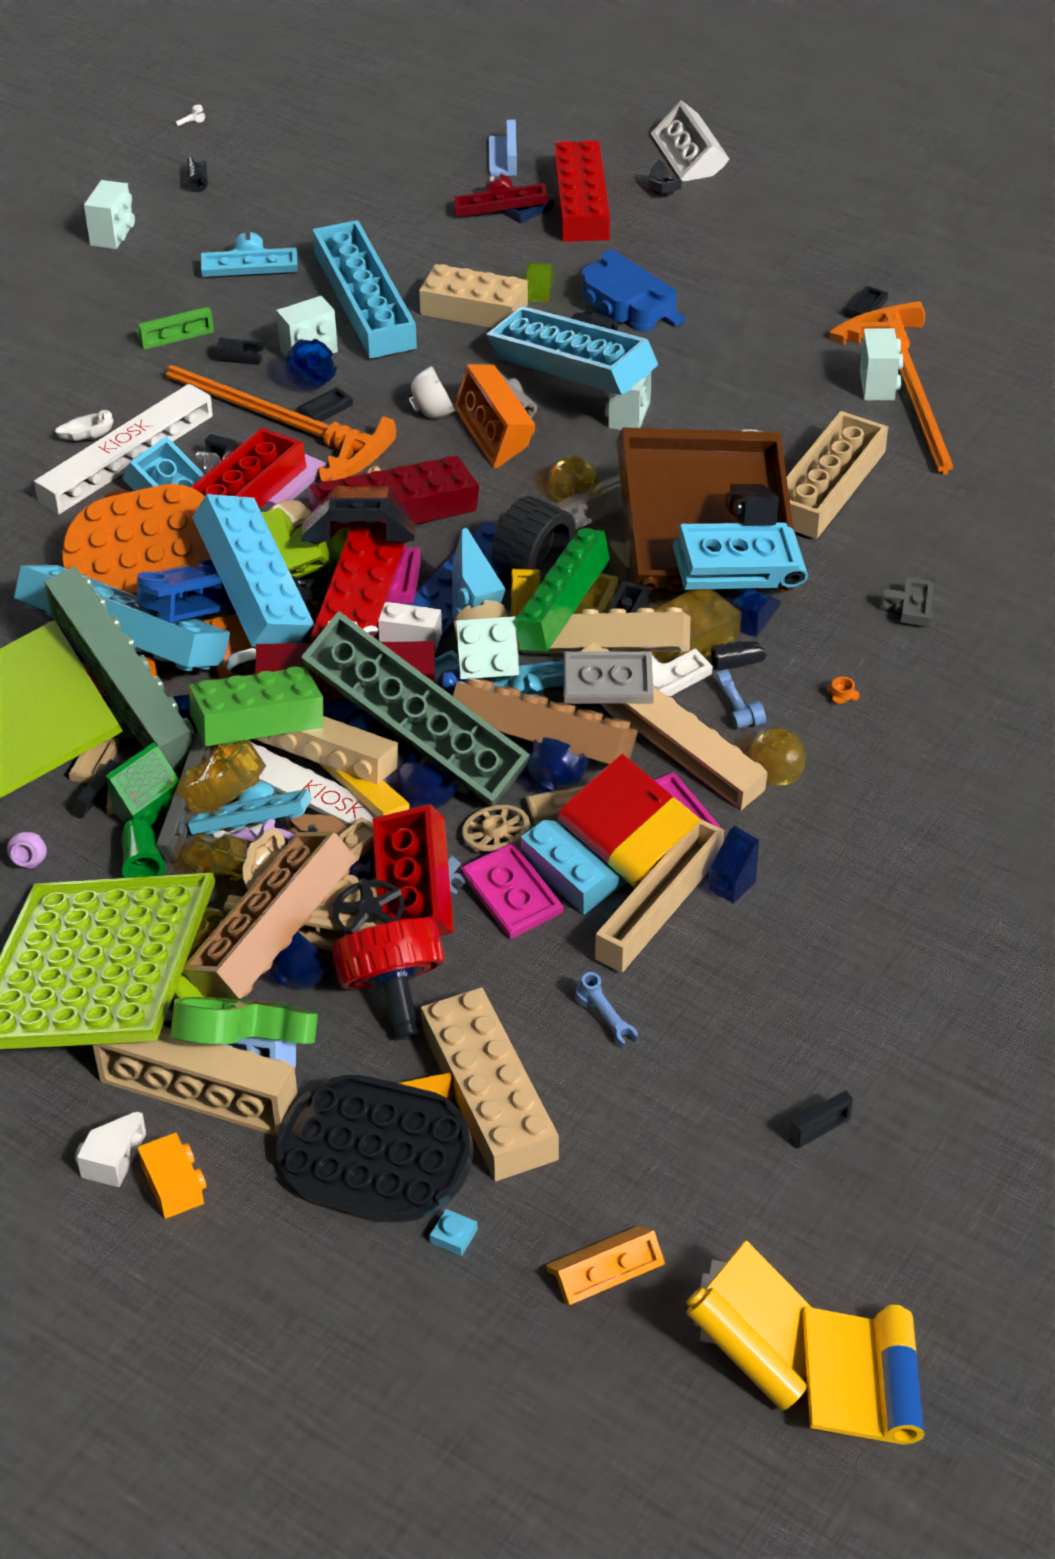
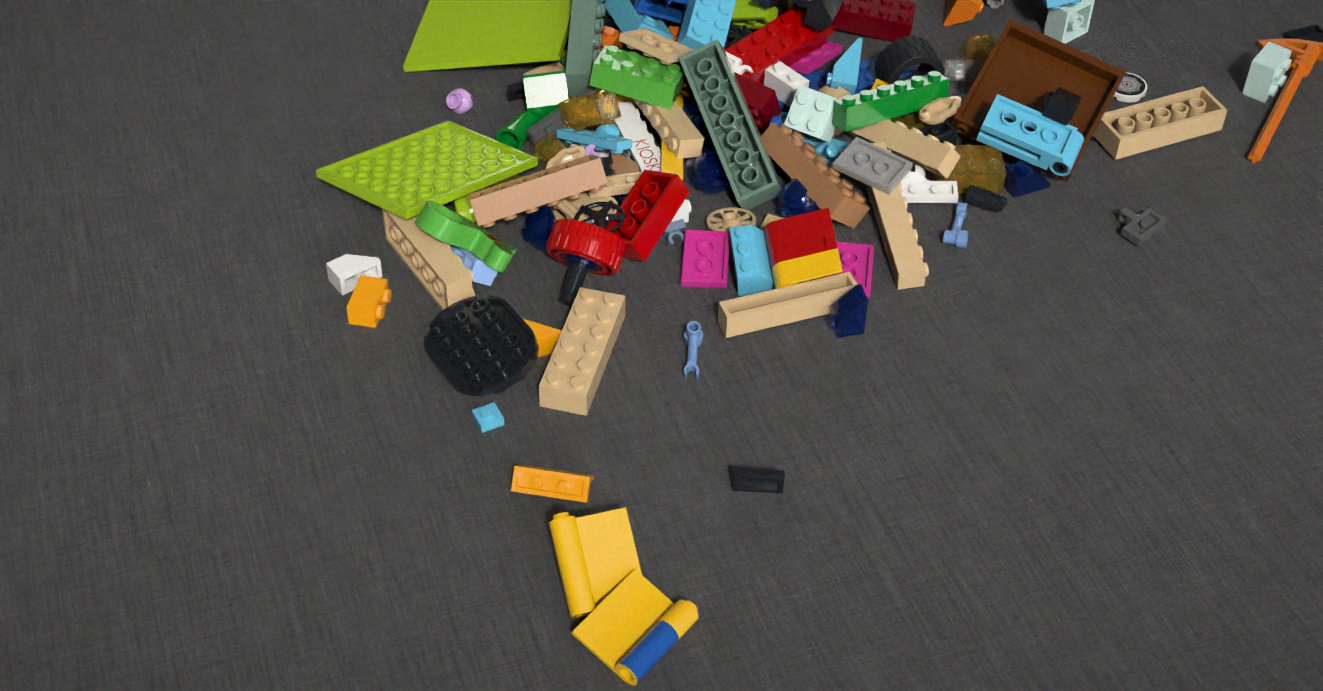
camera: 35 degrees right, 0 degrees up
(252, 655) = (654, 45): none -> tan plate
(616, 573) = (939, 110): none -> tan arm
(779, 753) = (949, 268): clear yellow cylinder -> none
(842, 690) = (1035, 254): orange plate -> none

